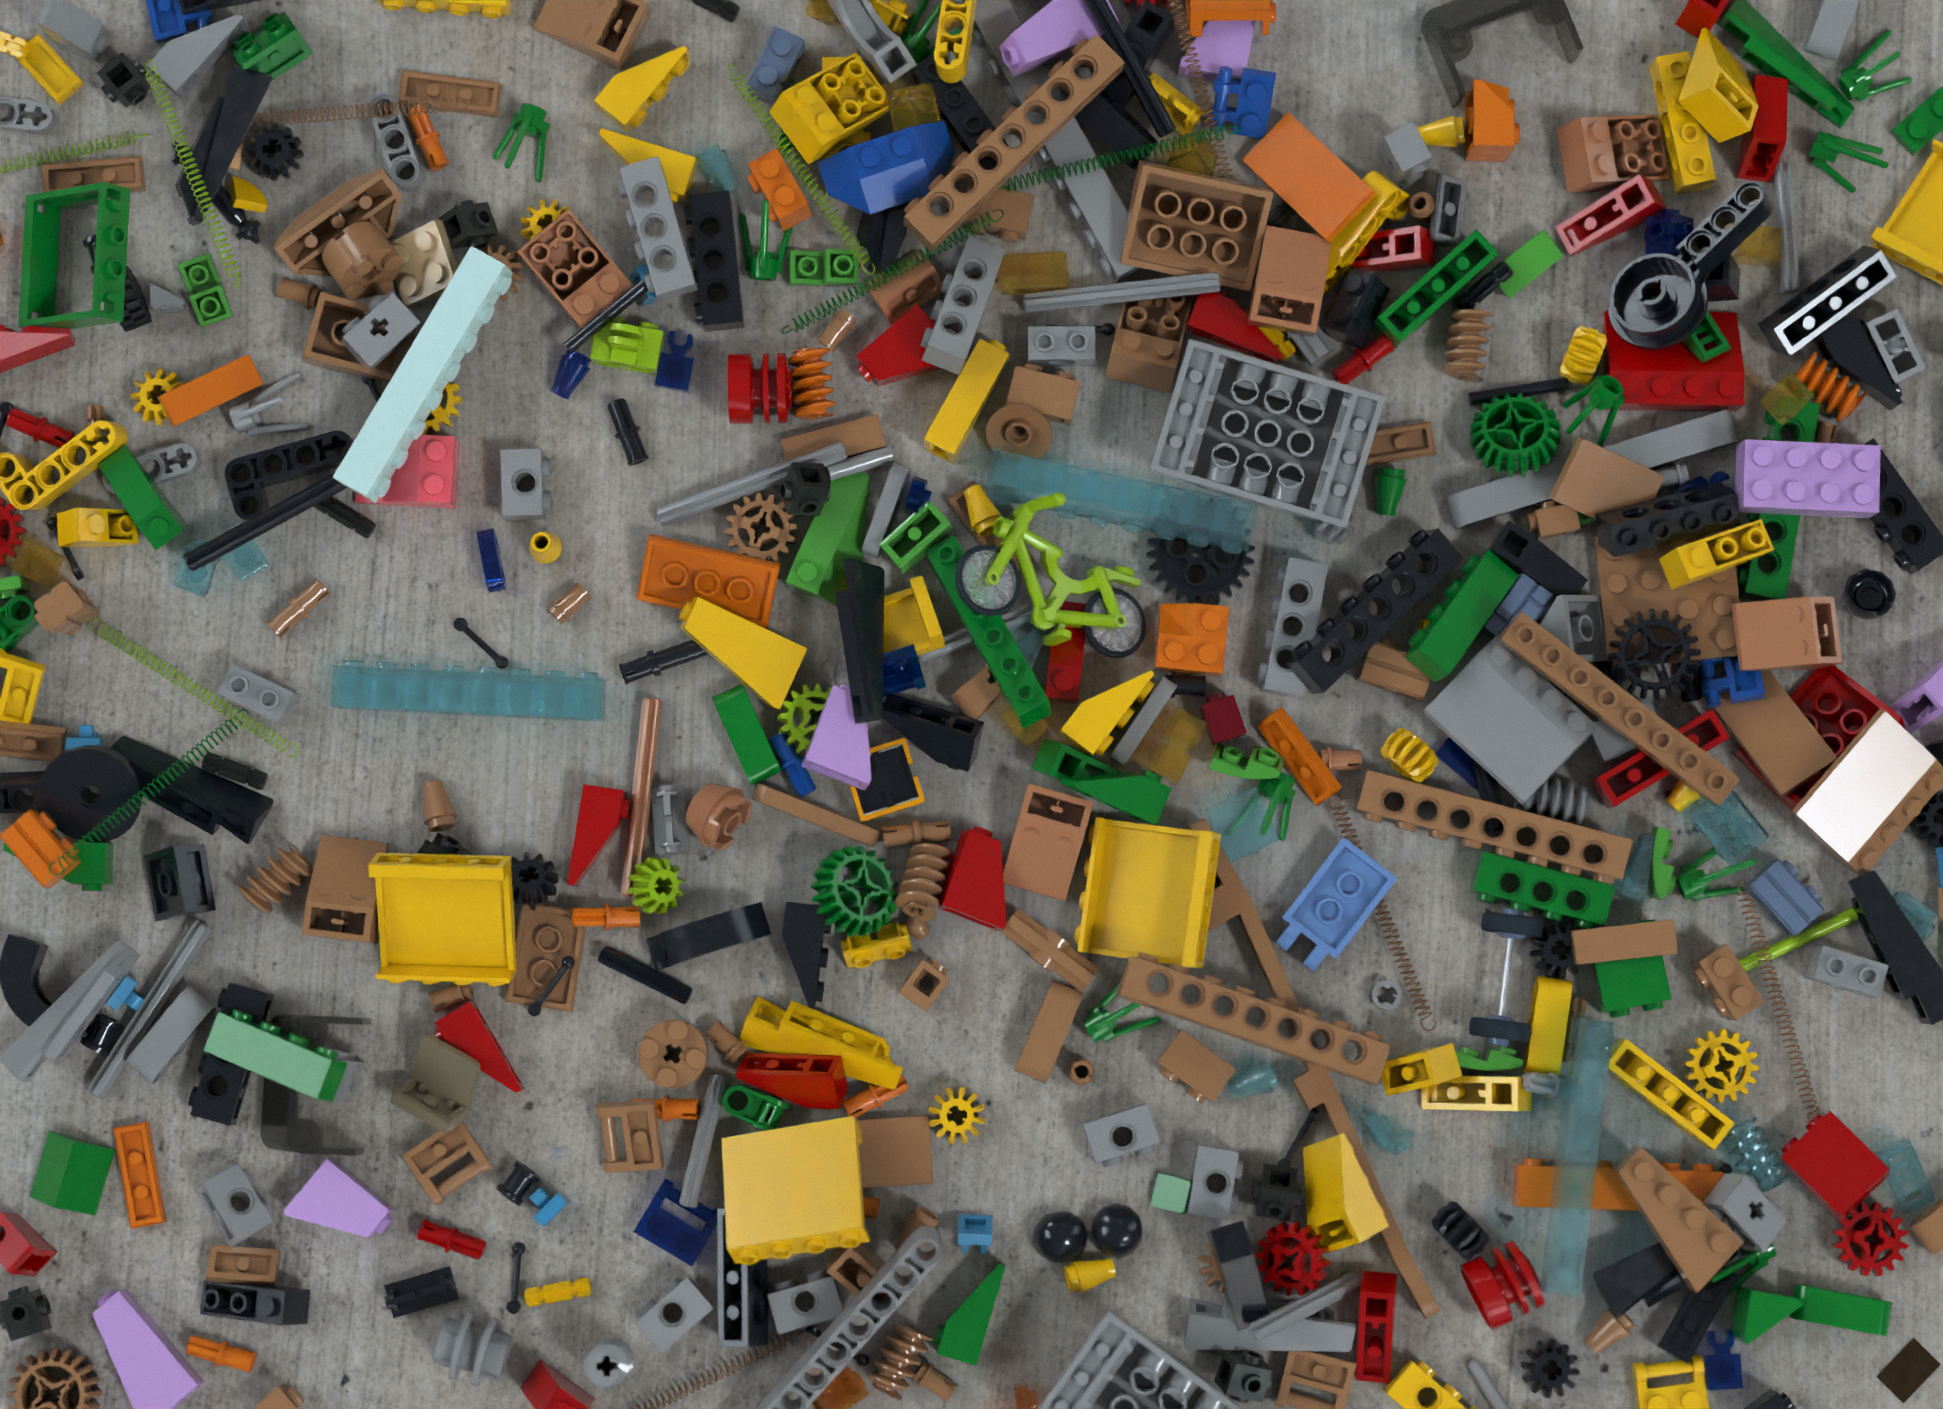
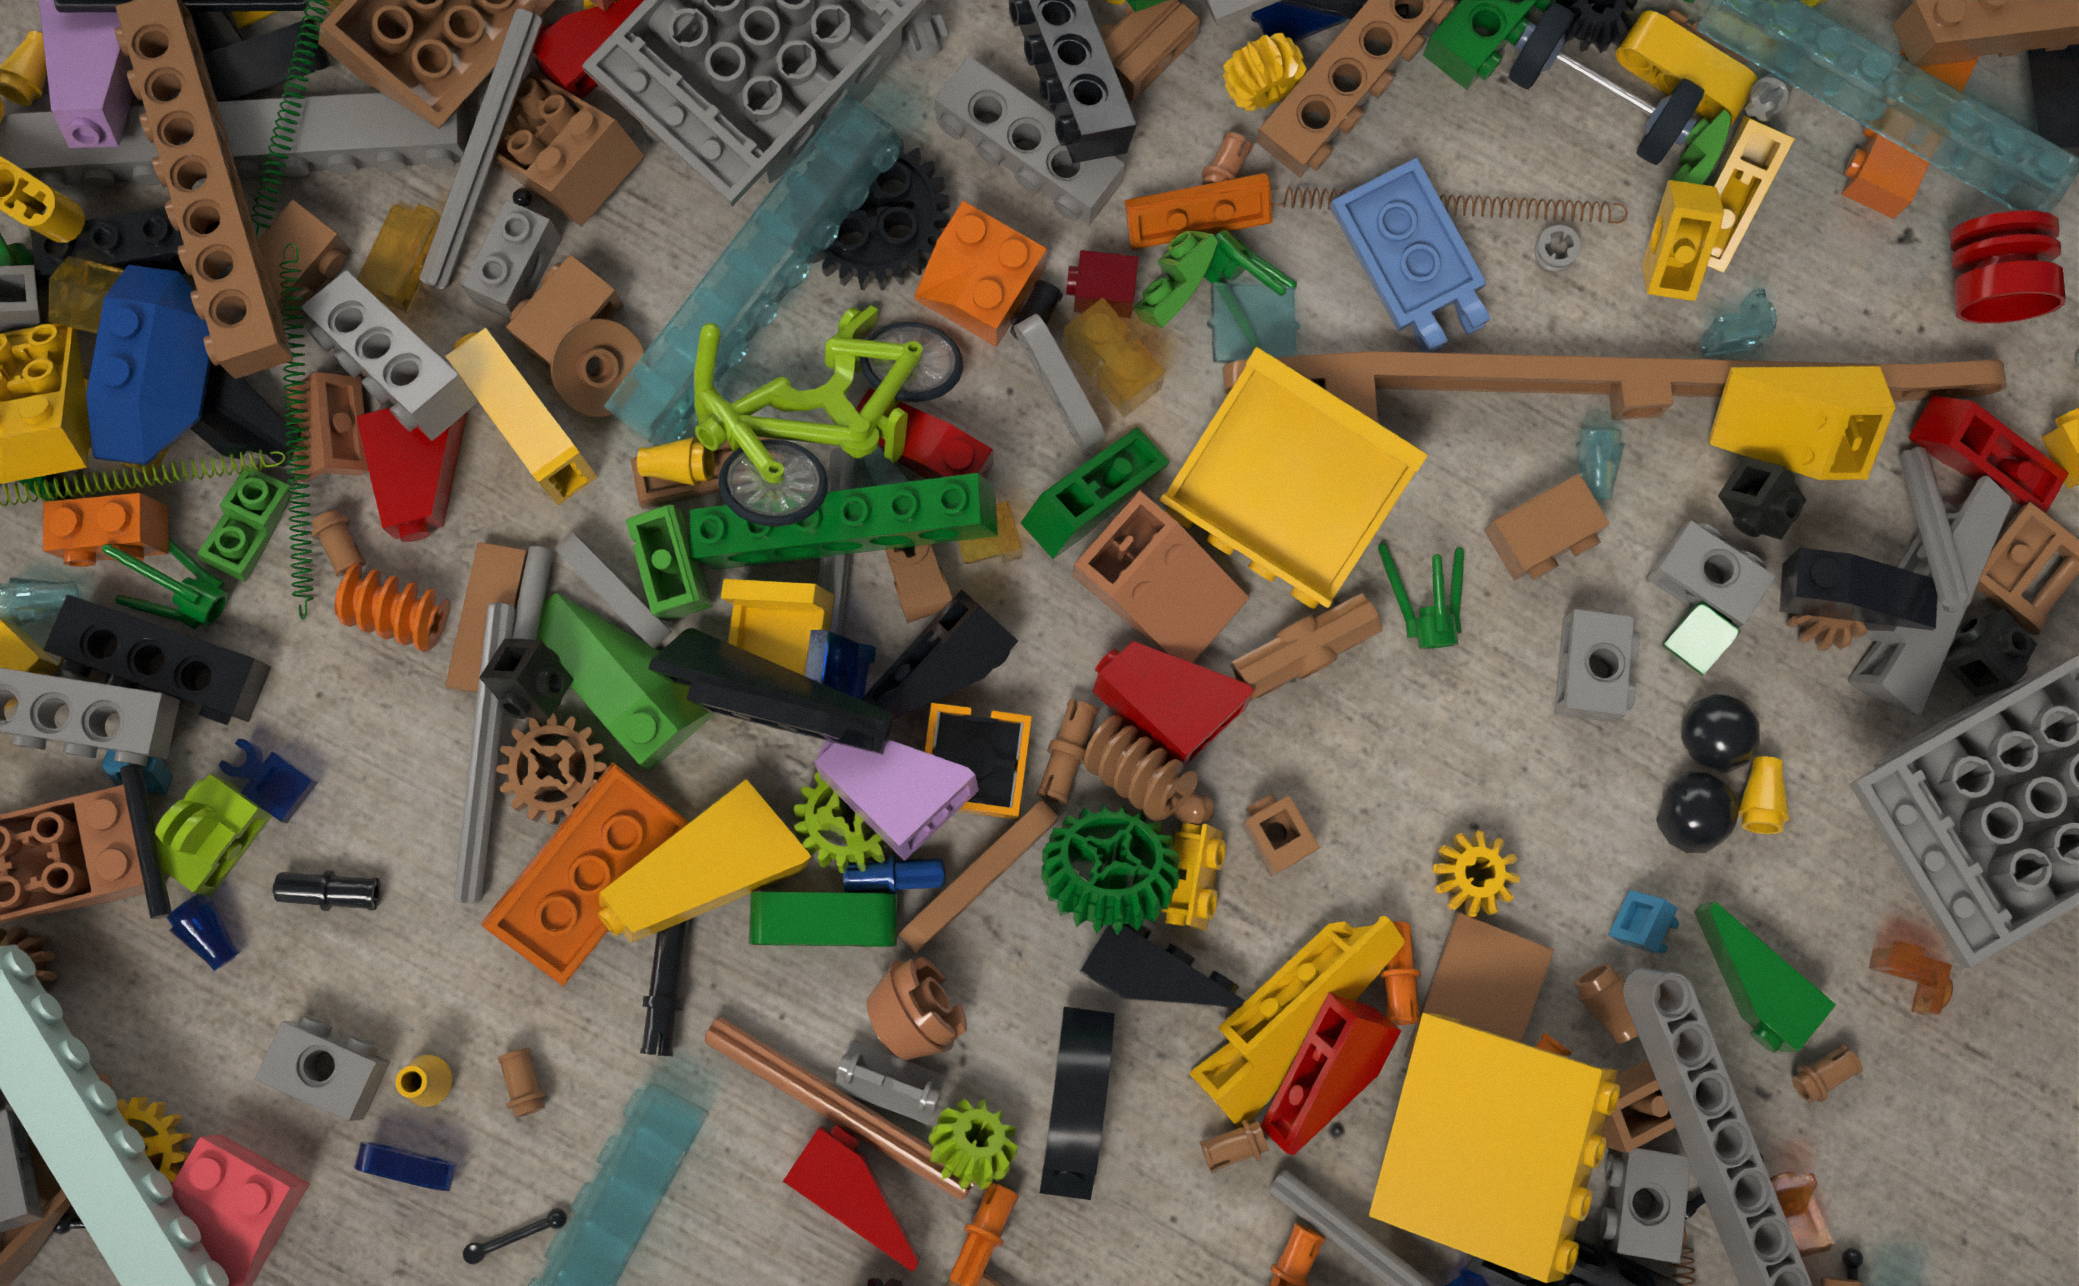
camera: 65 degrees left, 5 degrees down
(645, 974) = (1088, 1218): black axle -> none
(655, 1048) = (1243, 1248): medium nougat brick -> none
(757, 1107) = (1346, 1147): green piece -> none
(758, 388) = (357, 679): red wheel -> none
(898, 1360) = (1782, 1108): medium nougat piece -> none
(917, 496) = (614, 537): clear blue plate -> none
(1049, 1031) = (1416, 698): medium nougat beam -> none
(1071, 1071) = (1477, 676): medium nougat pin -> none
(1097, 717) = (1032, 441): yellow slope -> none
(1126, 792) = (1148, 443): green slope -> none
(1278, 1252) = (1840, 507): red gear -> none
(1310, 1118) = (1721, 474): black hinge -> none
(1365, 1067) = (1648, 298): medium nougat brick -> none
(1460, 1230) = (1910, 289): black gear -> none

